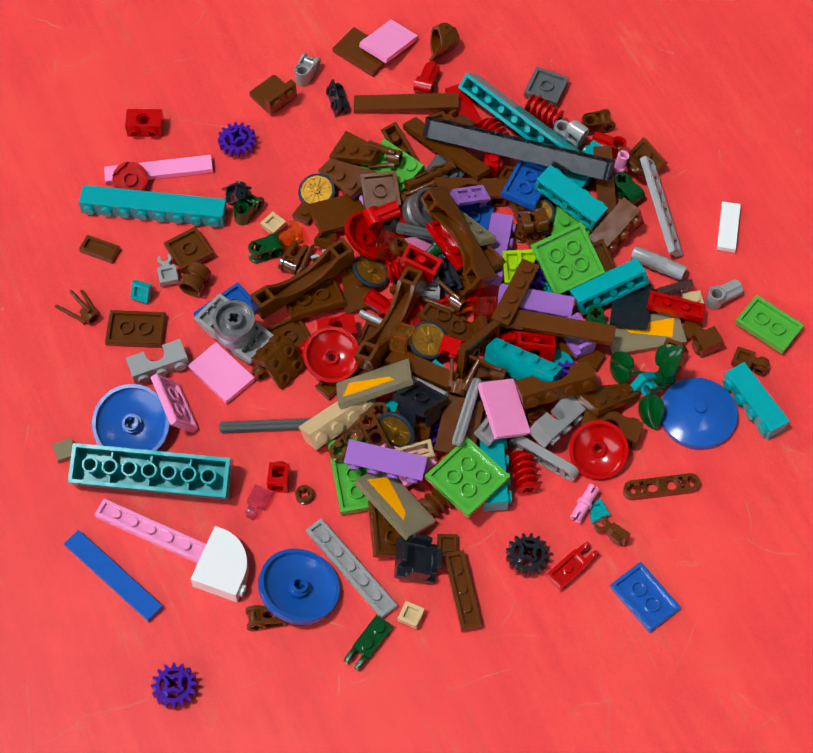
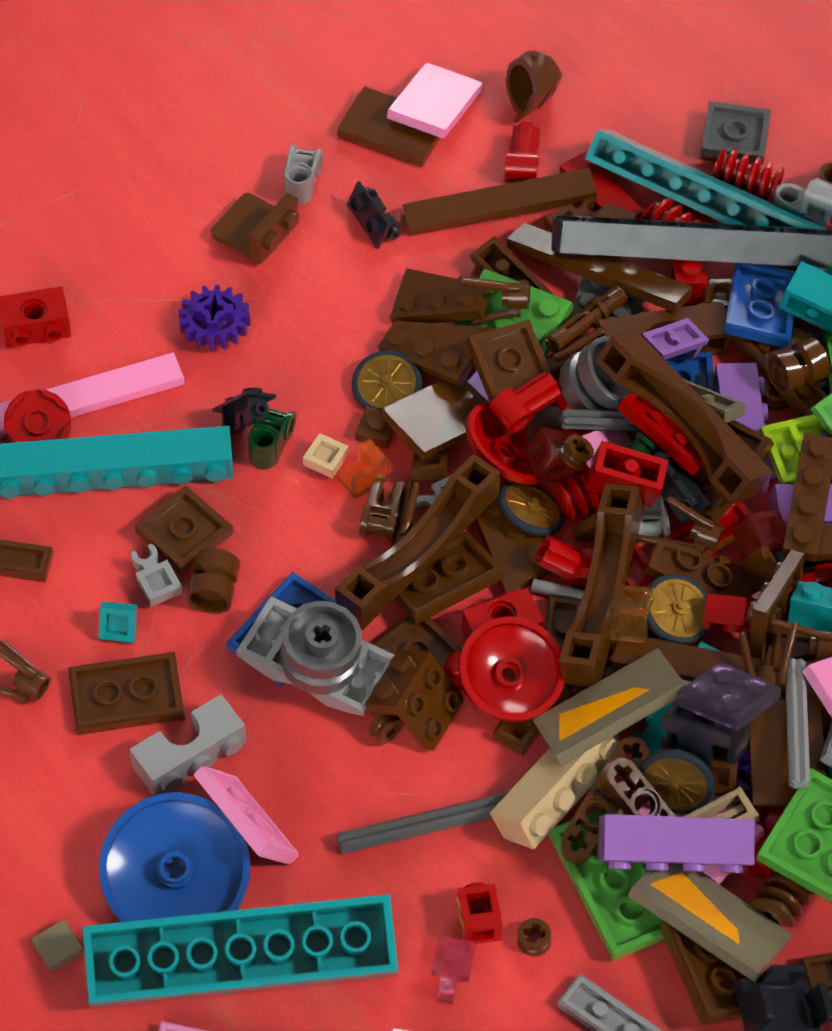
camera: 15 degrees left, 5 degrees down
(221, 373) = (311, 743): bright pink tile -> none
(266, 248) = (326, 503): dark green piece -> none
(432, 390) = (728, 696): none -> clear purple plate

